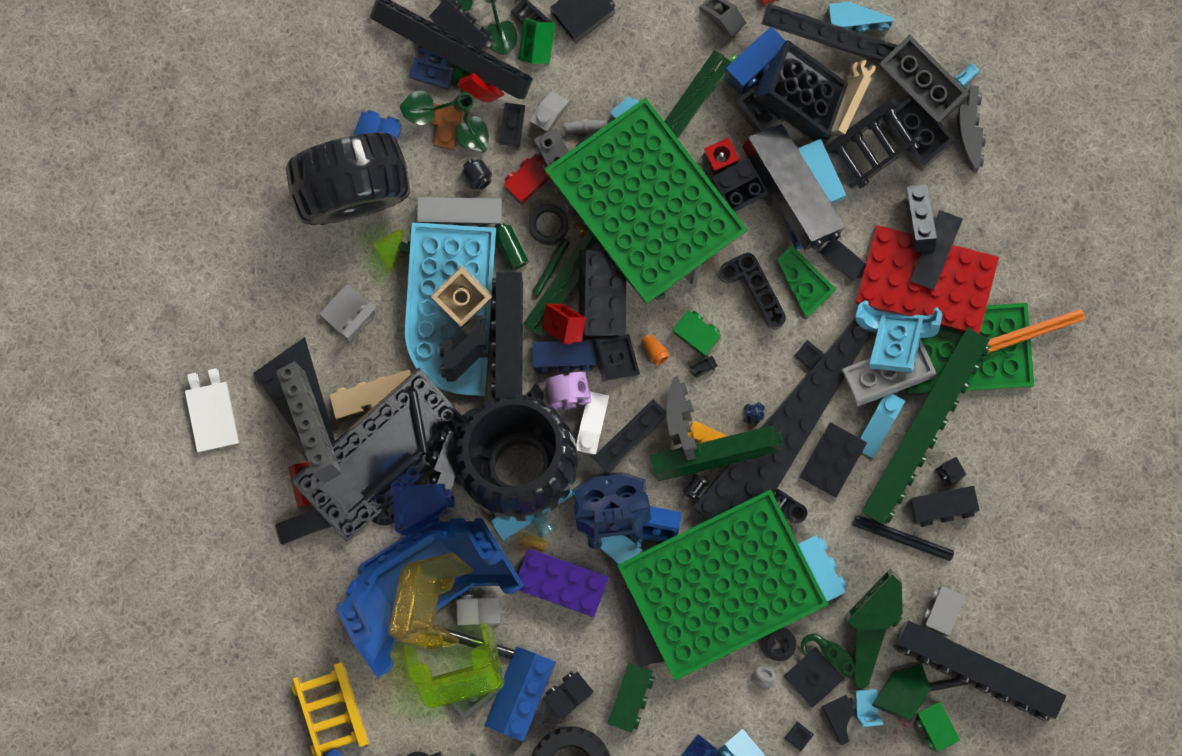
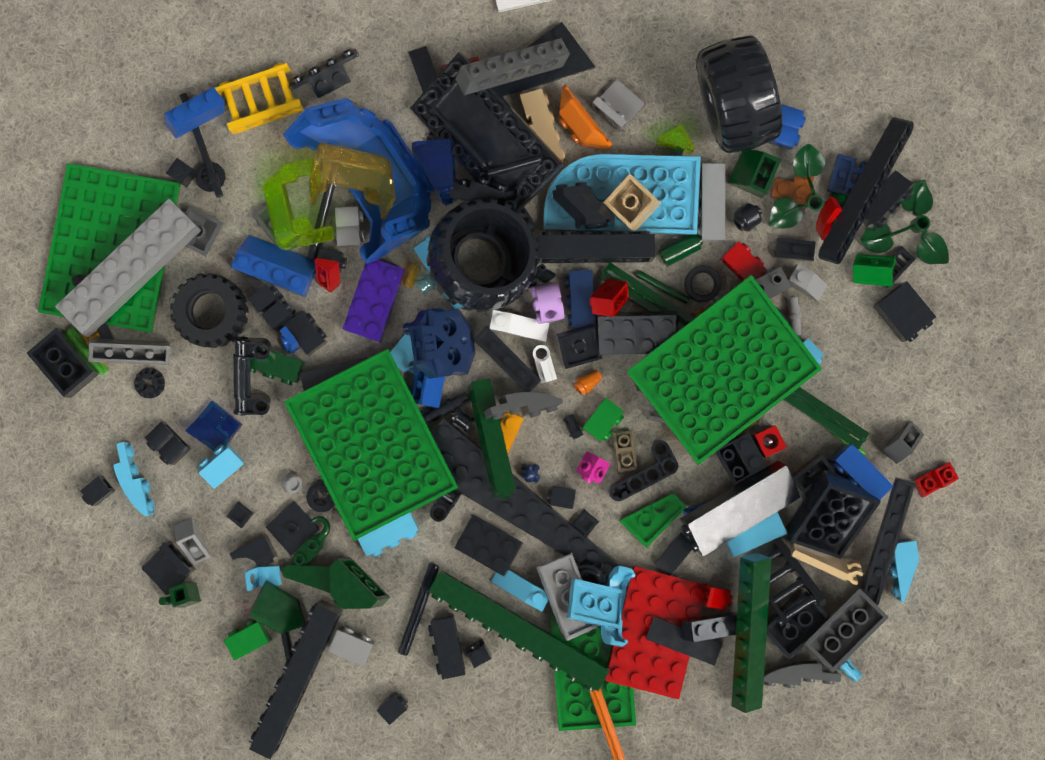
camera: 85 degrees right, 5 degrees up
(306, 634) = (327, 77): none -> black bracket
(367, 354) = (580, 123): none -> orange wedge
(428, 165) = (754, 172): none -> dark green slope
(516, 630) = (335, 256): none -> black brick
(532, 634) = (327, 274): none -> red slope
(597, 659) = (306, 333): none -> black brick
(606, 677) = (288, 341): none -> blue plate
(618, 722) = (242, 376): none -> black piece
(637, 396) = (544, 366): none -> white piece
(681, 503) = (446, 407): none -> black pin
(731, 311) = (625, 452): none -> dark tan slope
(749, 345) = (592, 468): none -> dark pink brick
(780, 379) = (561, 497): none -> black brick
(858, 351) = (597, 577): none -> black gear
(889, 214) = (717, 597): none -> red slope
(926, 178) = (751, 632): none -> dark green brick
(1010, 565) = (393, 707): none -> black brick

